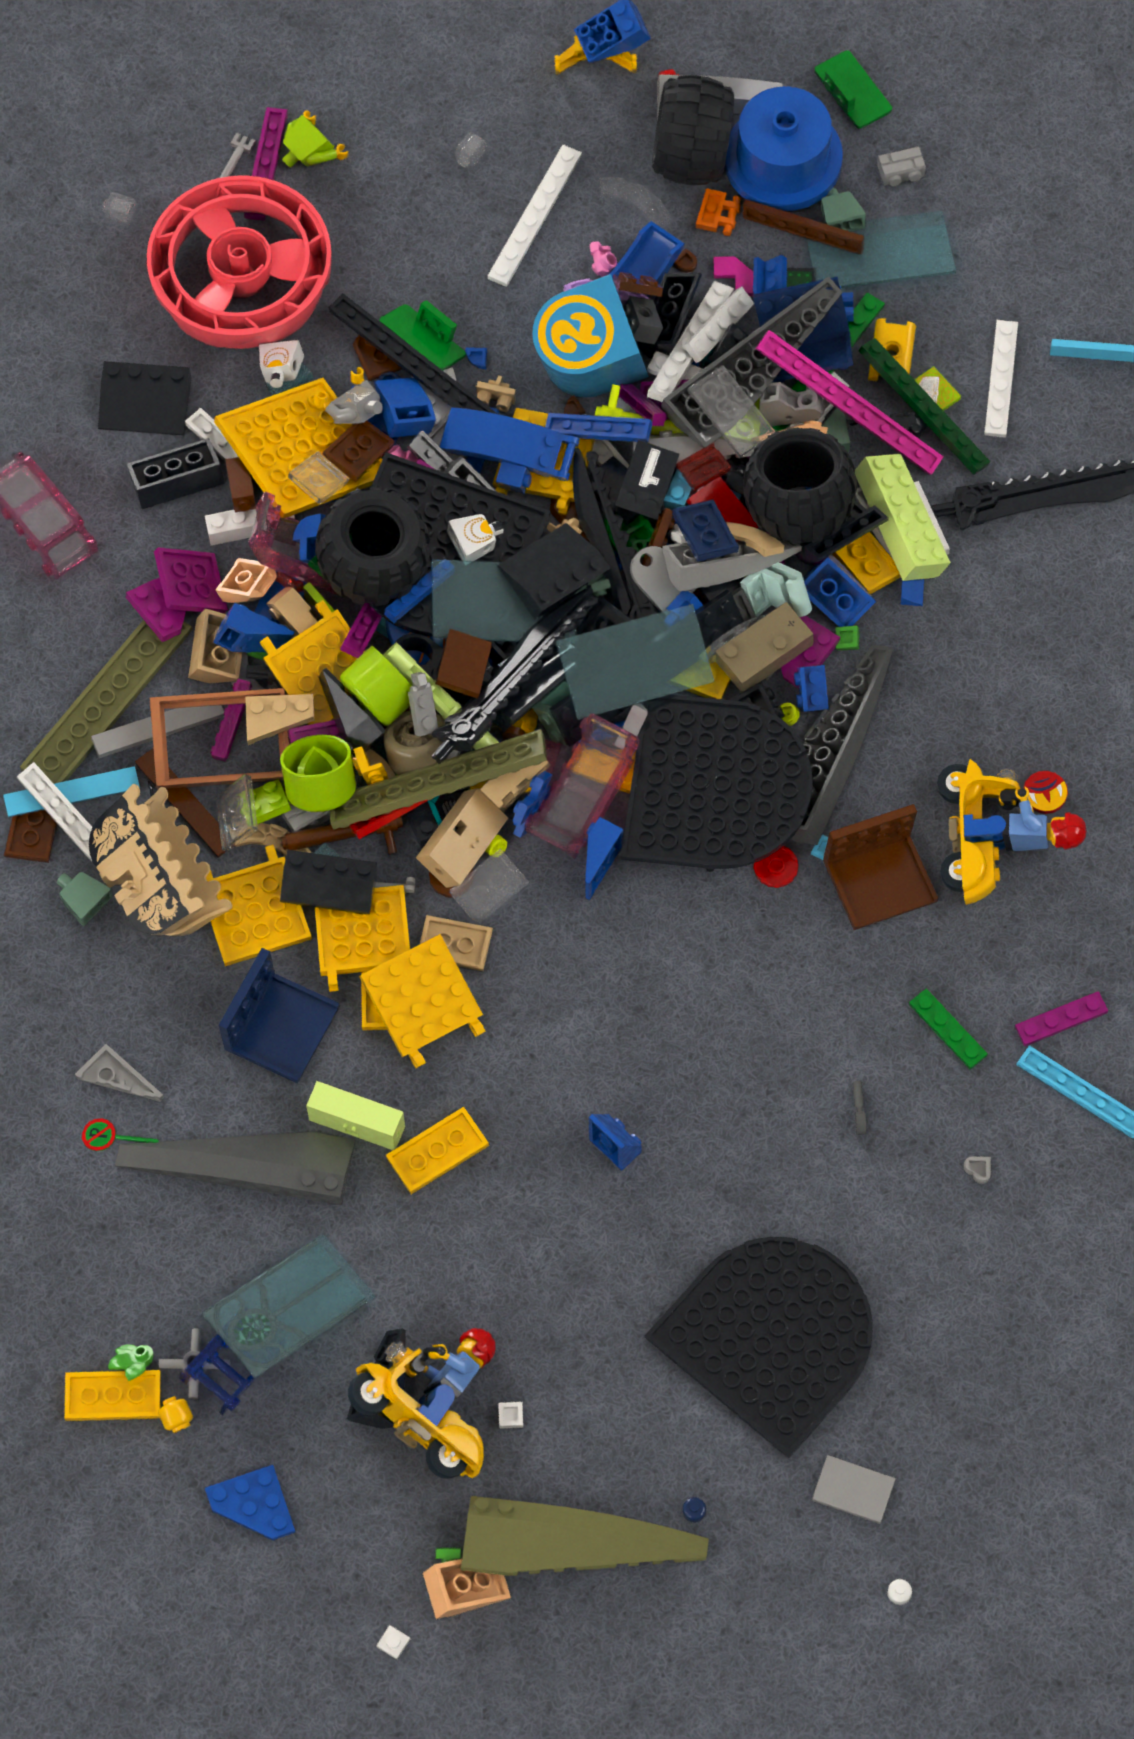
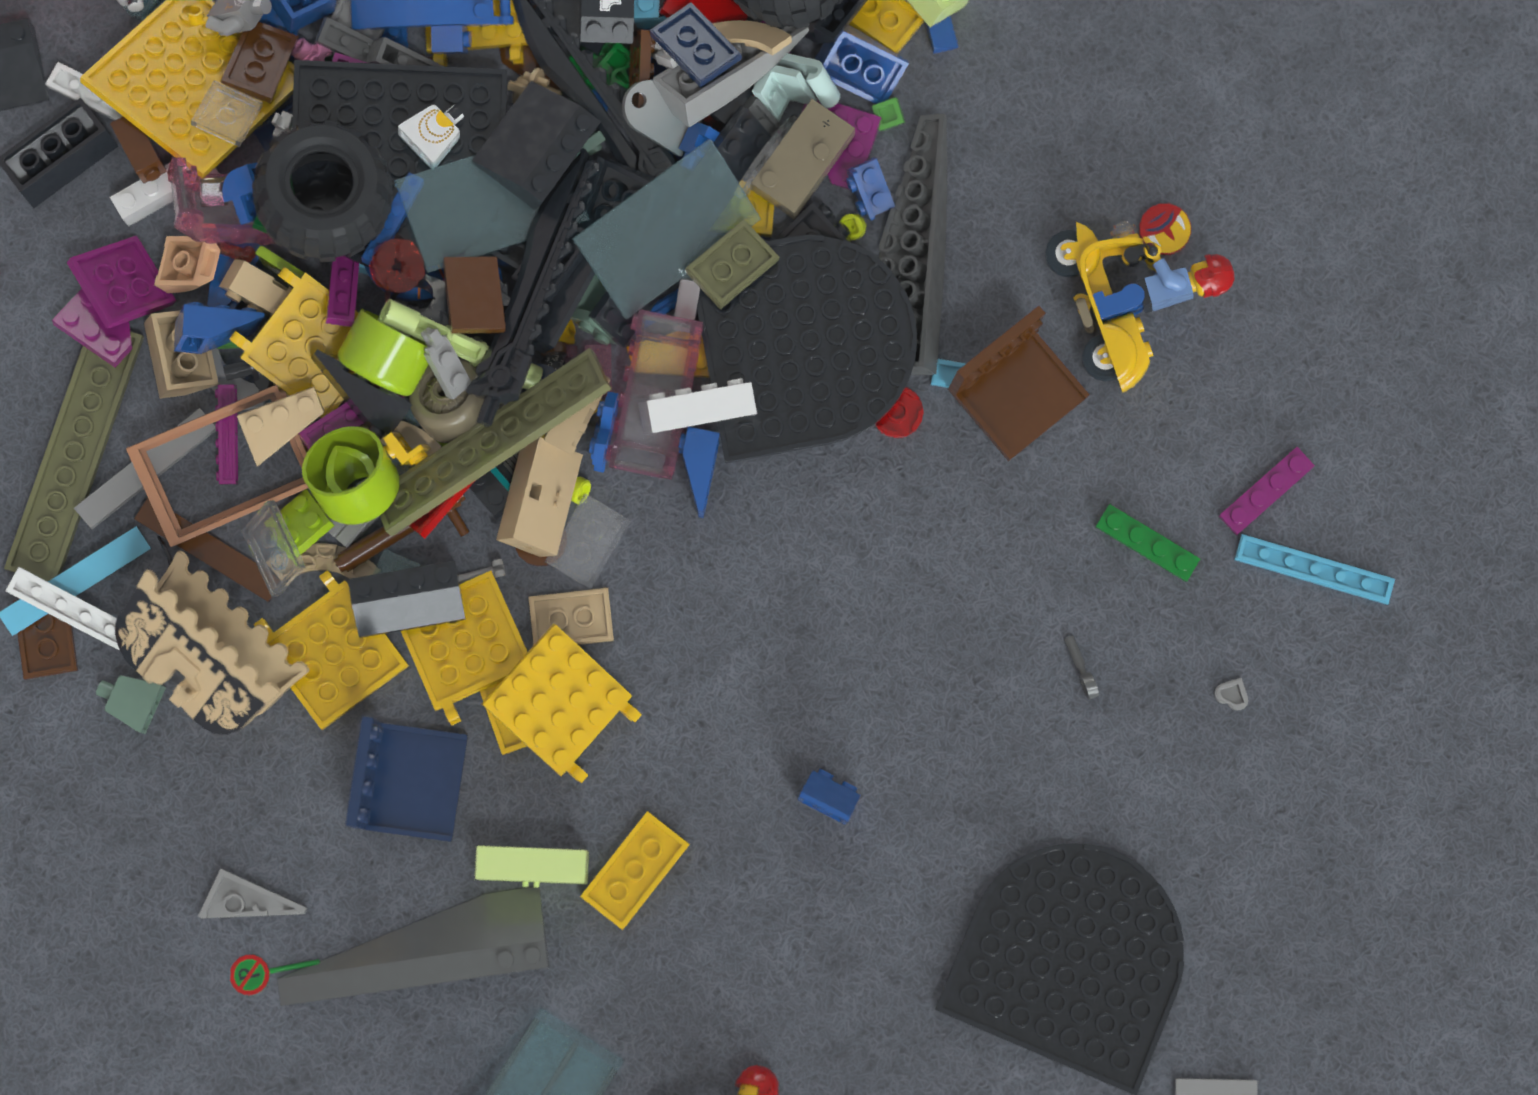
camera: 25 degrees left, 15 degrees up
(423, 623) = (383, 260): none -> clear red plate
(612, 803) = (697, 408): none -> white wedge
(678, 705) = (732, 264): none -> olive tile

